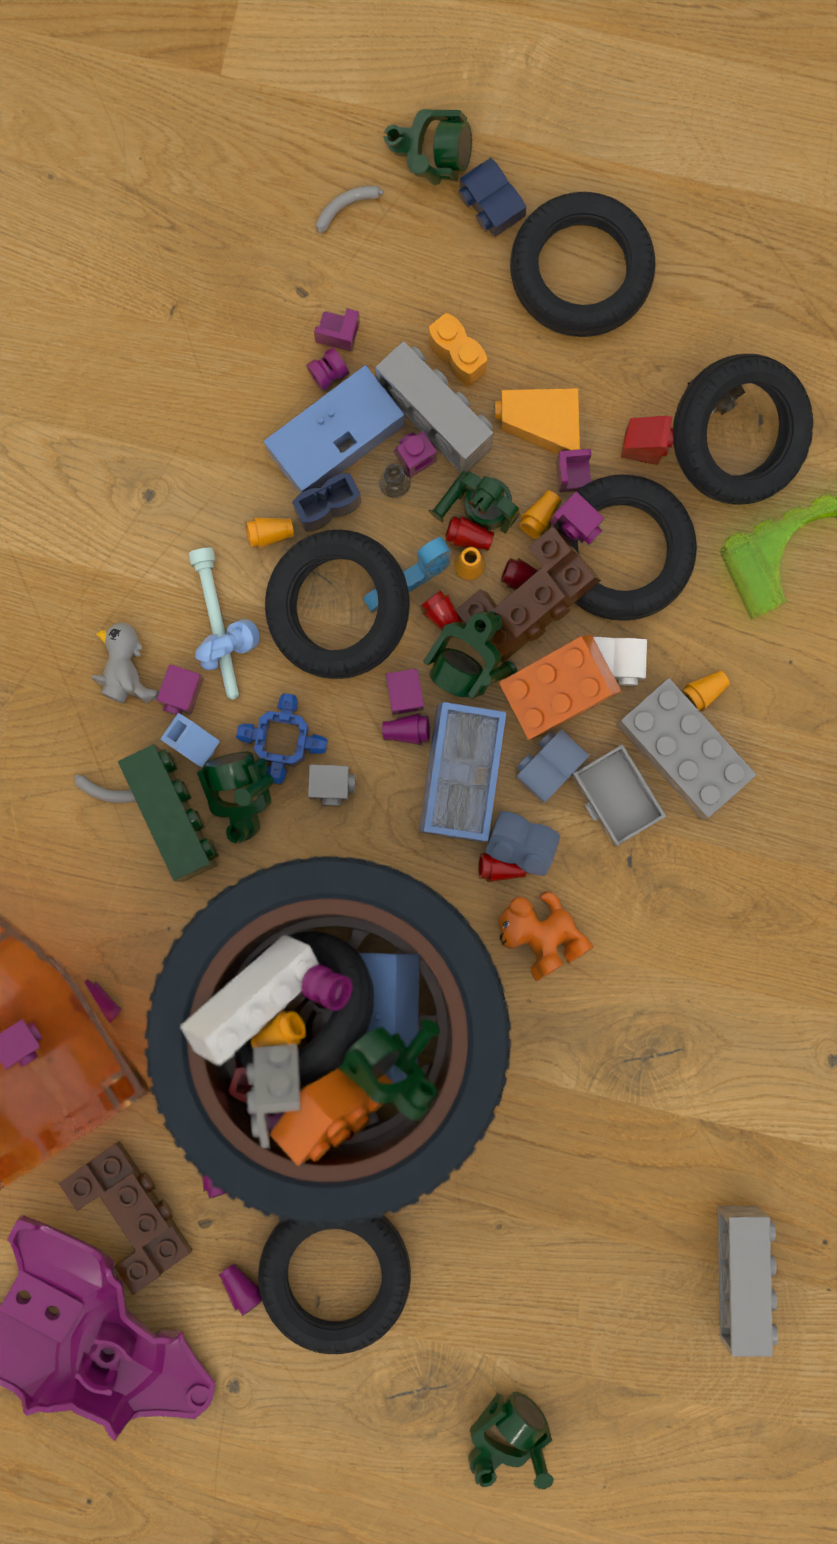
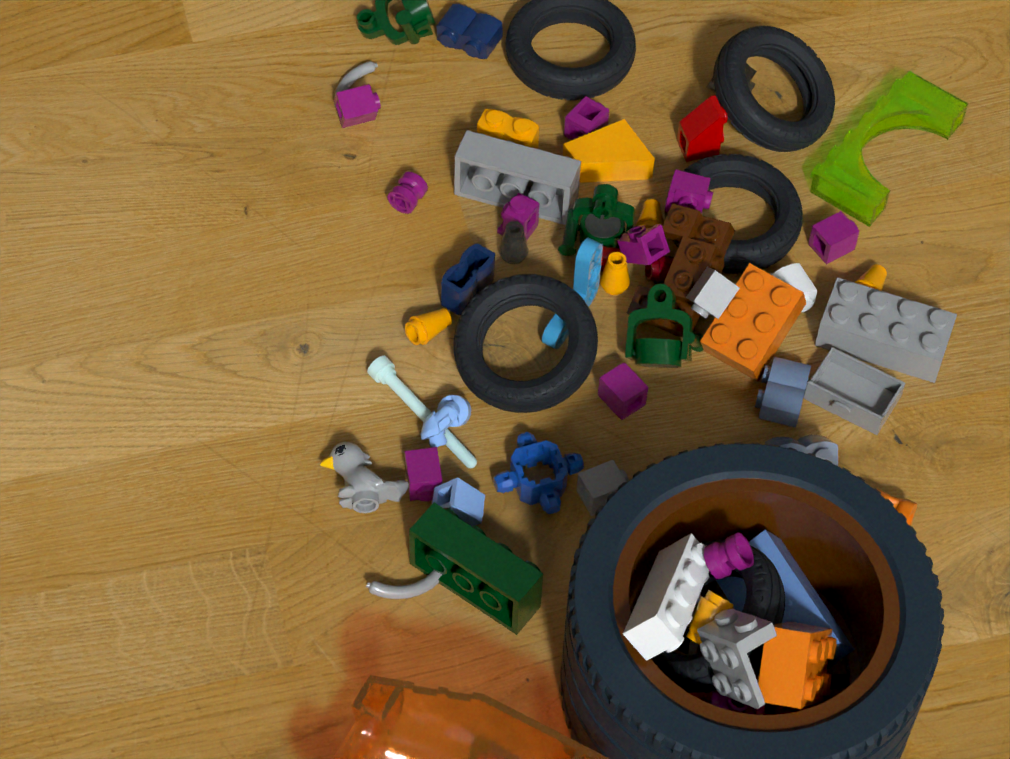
camera: 30 degrees left, 30 degrees down
(230, 773) = (514, 509): dark green piece -> none
(331, 241) = (356, 105): none -> magenta brick
(335, 431) = (441, 230): medium blue brick -> none
(338, 330) = (394, 167): magenta panel -> none
(377, 1054) = (807, 596): dark green piece -> none
(409, 729) = (644, 418): magenta cone -> none
(440, 610) = (613, 321): red cone -> none
(462, 772) = (705, 406): clear brick -> none
(504, 541) = (644, 244): none -> magenta brick
(530, 647) = (712, 293): none -> brick
(551, 357) = (585, 118): none -> magenta brick
(573, 469) = (652, 177): magenta panel -> none
(704, 621) = (833, 237): none -> magenta brick

